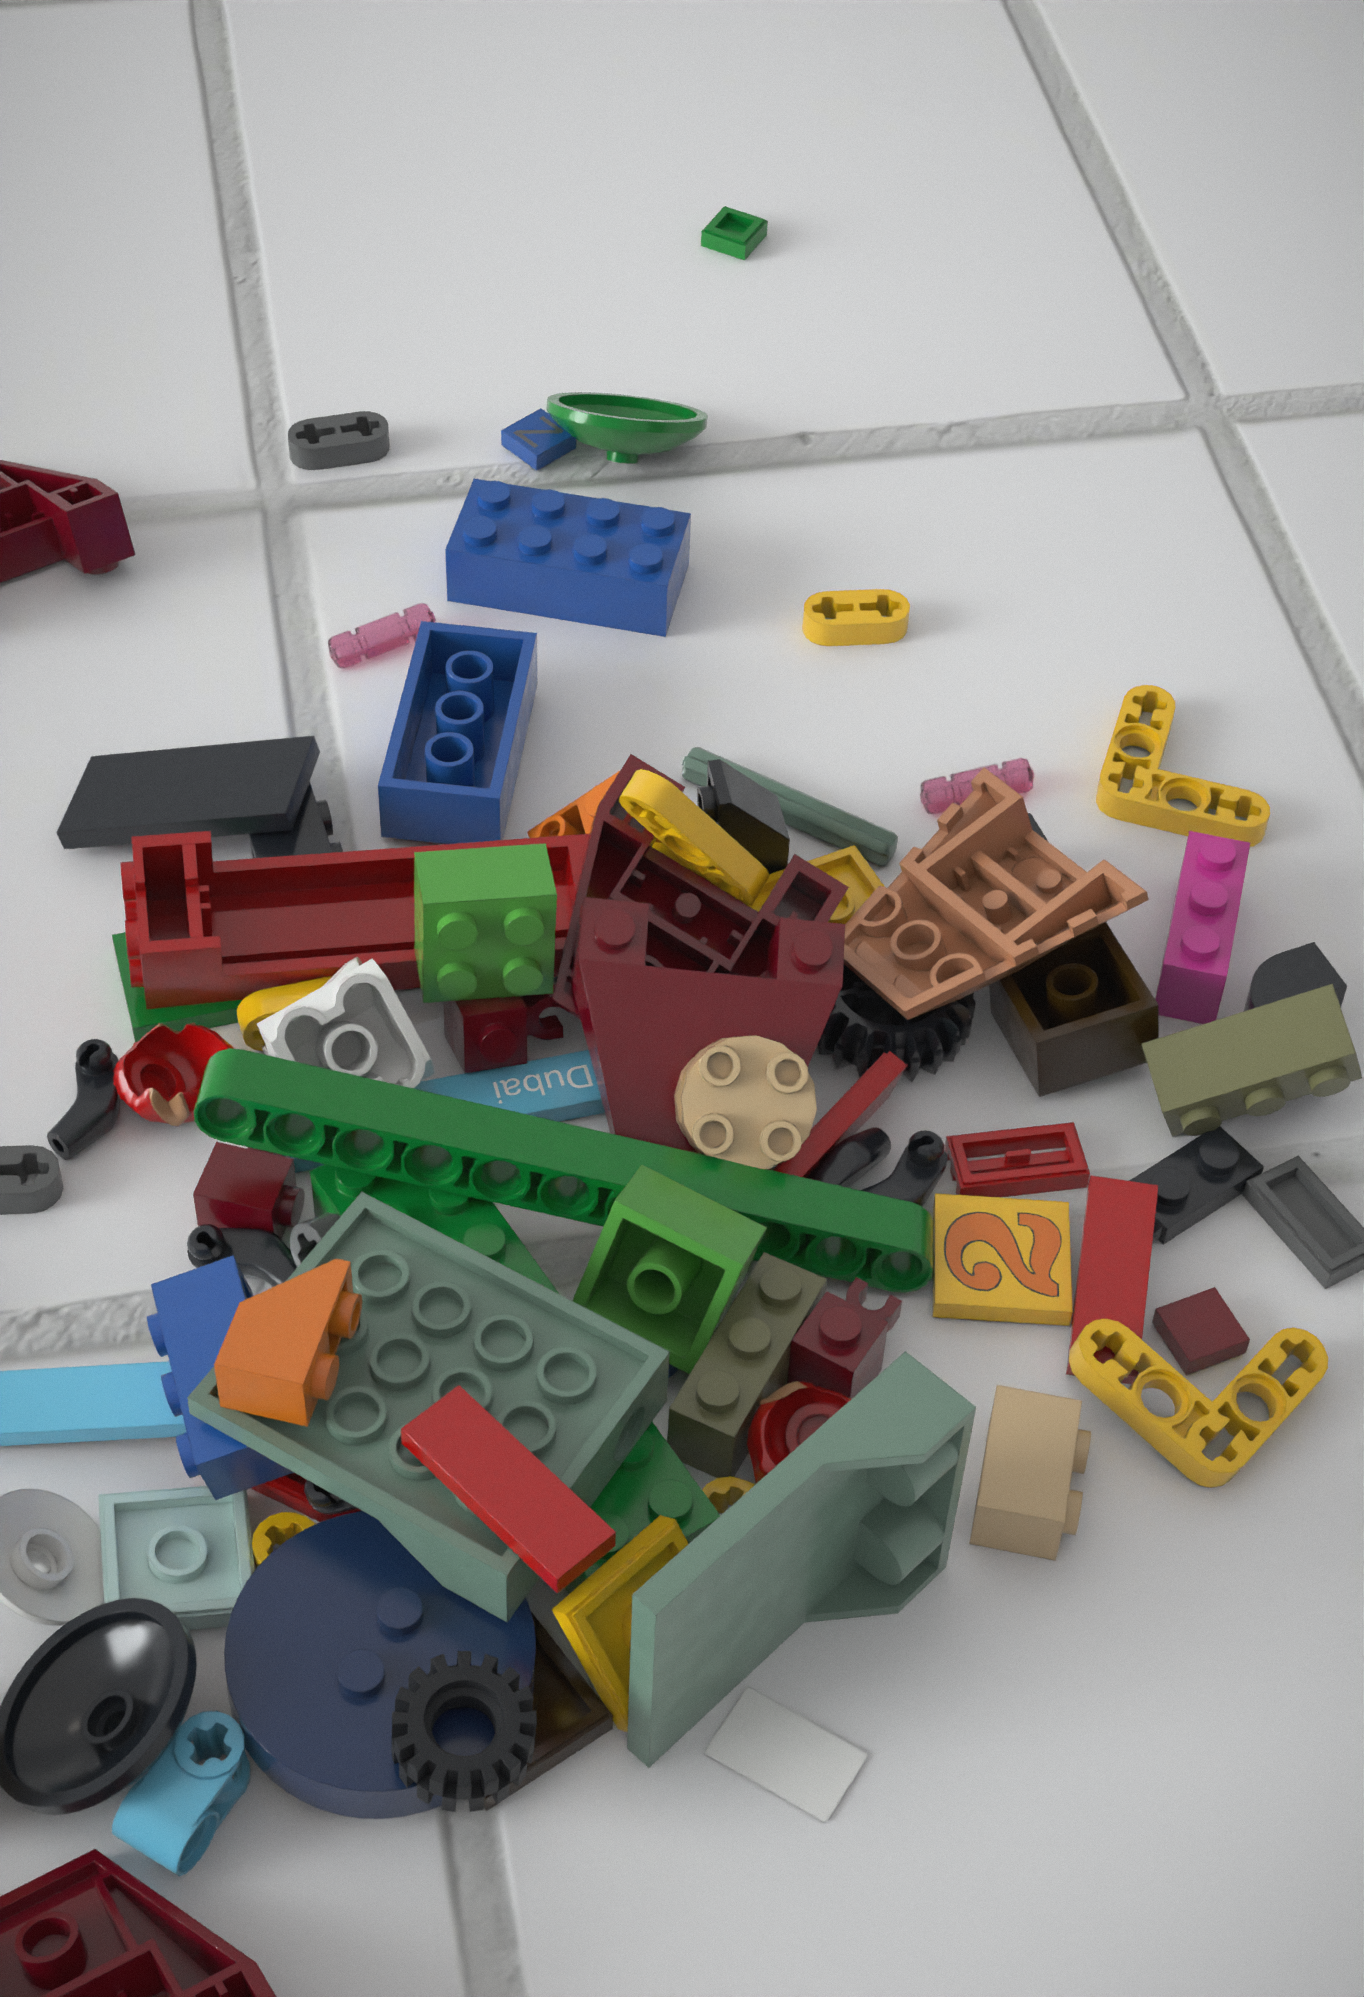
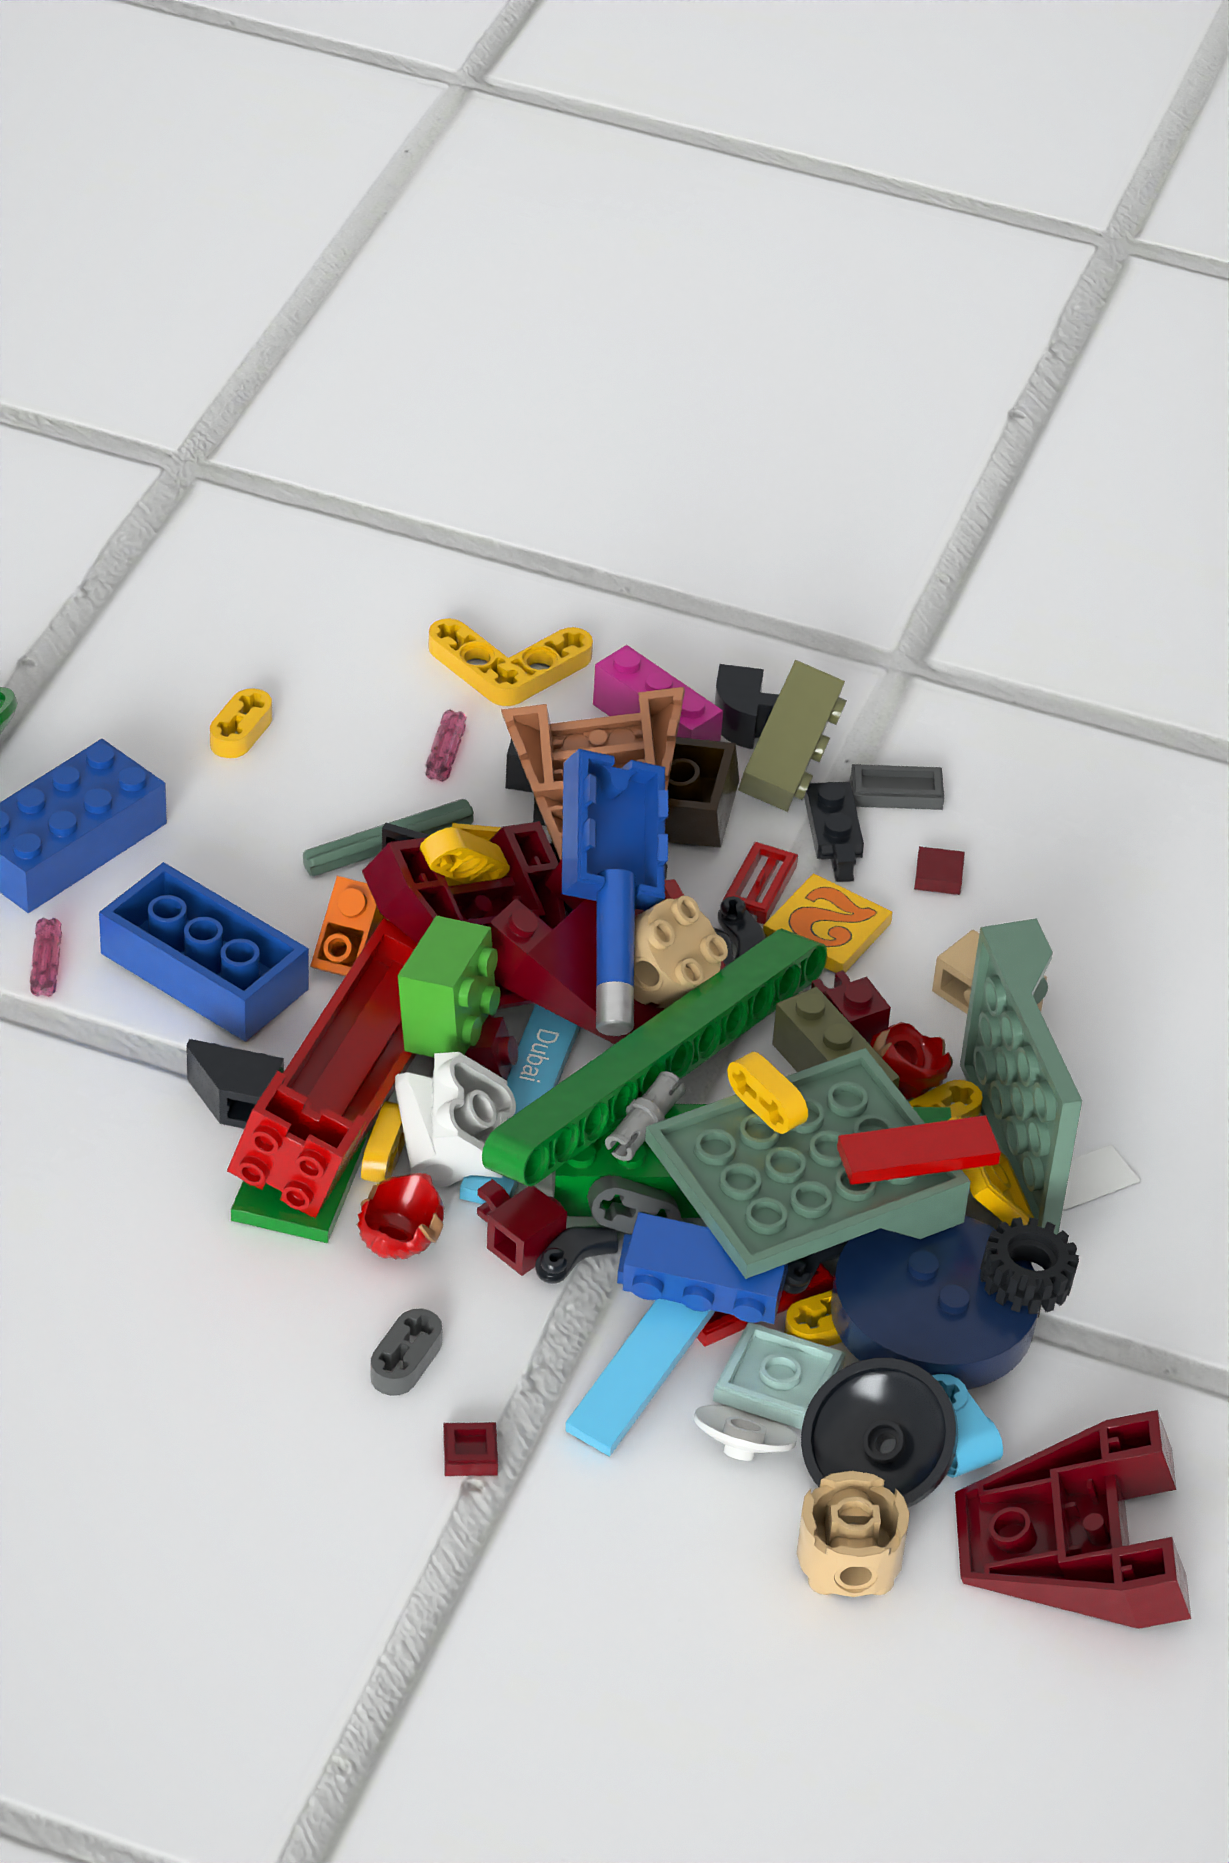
camera: 60 degrees left, 5 degrees down
(96, 1101) = (374, 1274): black arm -> none
(190, 790) = (142, 1108): black tile -> none
(286, 1343) = (762, 1194): orange slope -> none
(441, 1199) = (644, 1112): none -> light grey pin
(478, 1277) = (767, 1092): none -> yellow beam
(668, 1265) = (775, 1021): bright green brick -> none
(781, 954) = (615, 857): none -> blue piece
(1114, 1258) = (887, 880): red tile -> none
(1195, 1416) = (1008, 898): yellow beam -> none

